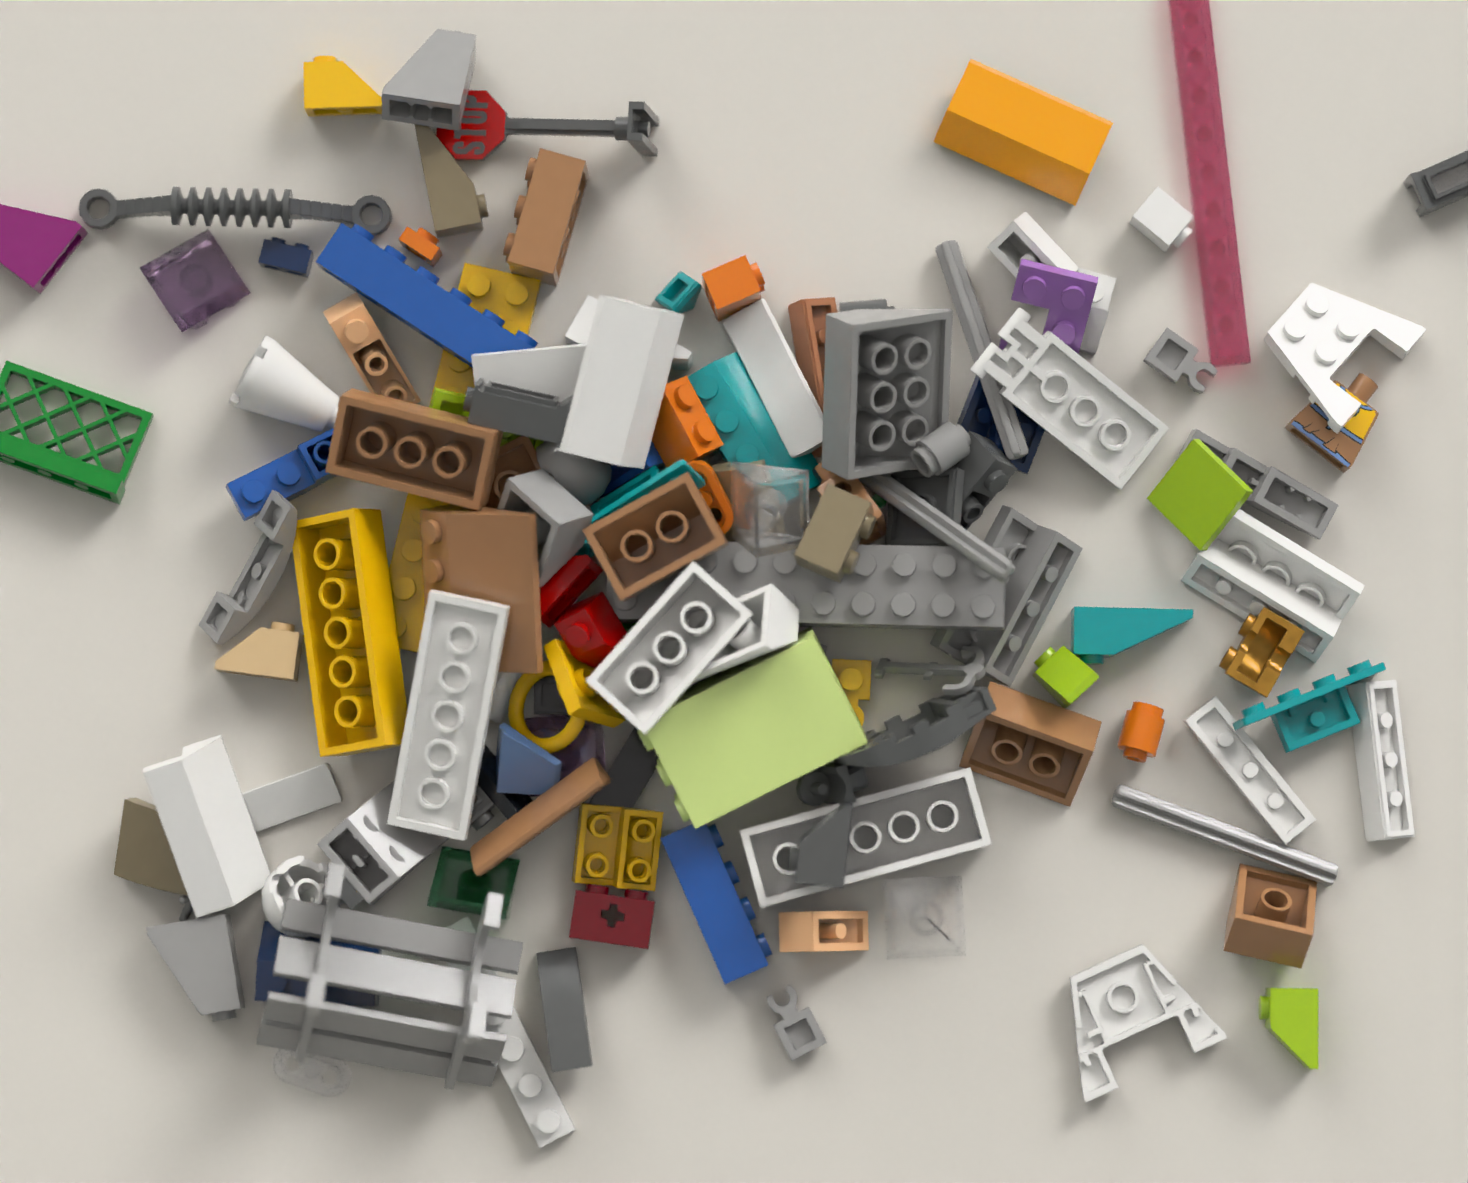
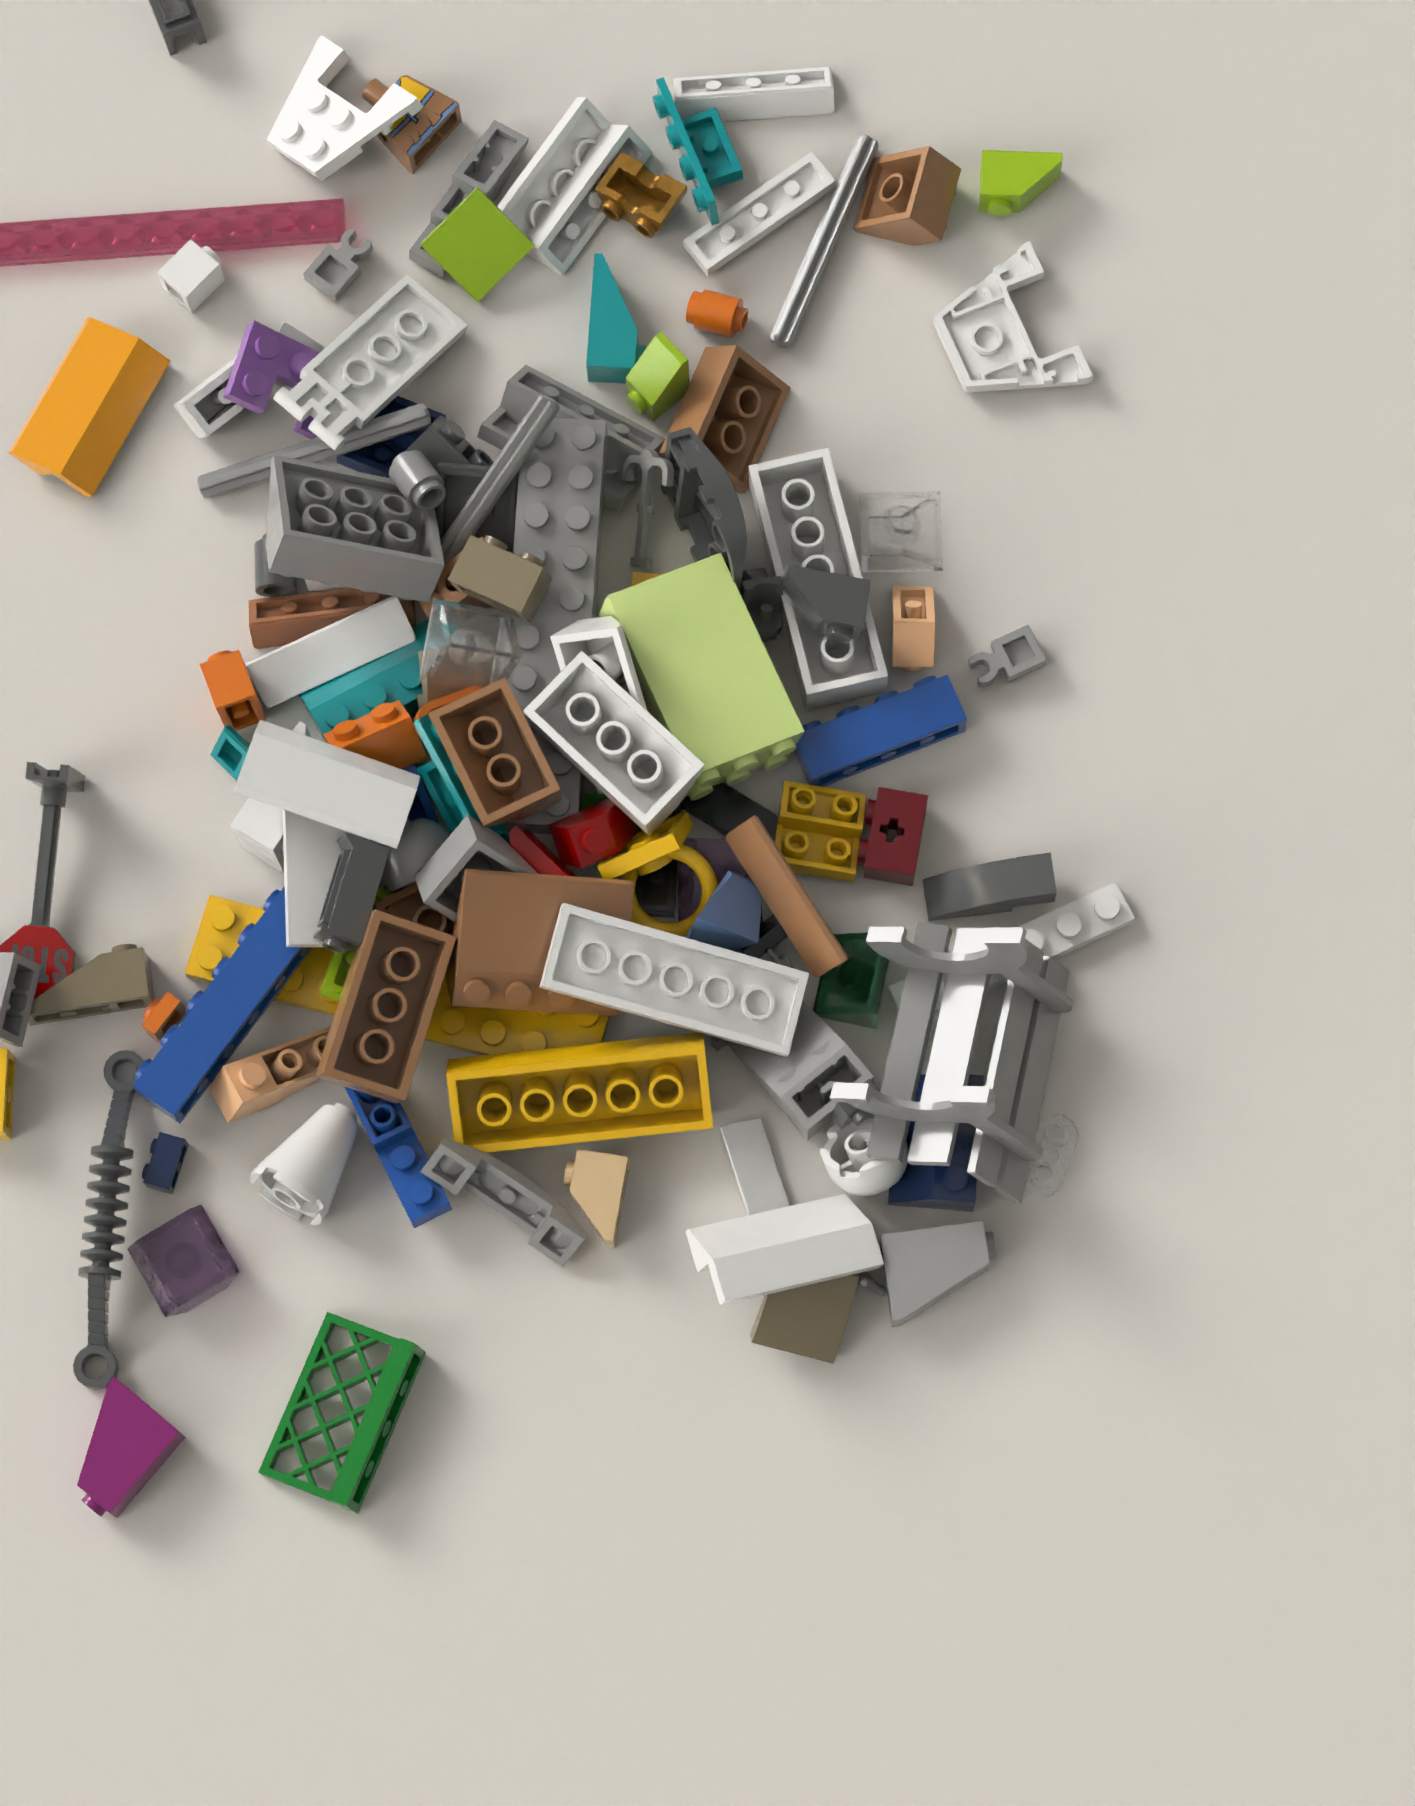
camera: 85 degrees left, 10 degrees down
(546, 216) = (142, 877): medium nougat brick -> none

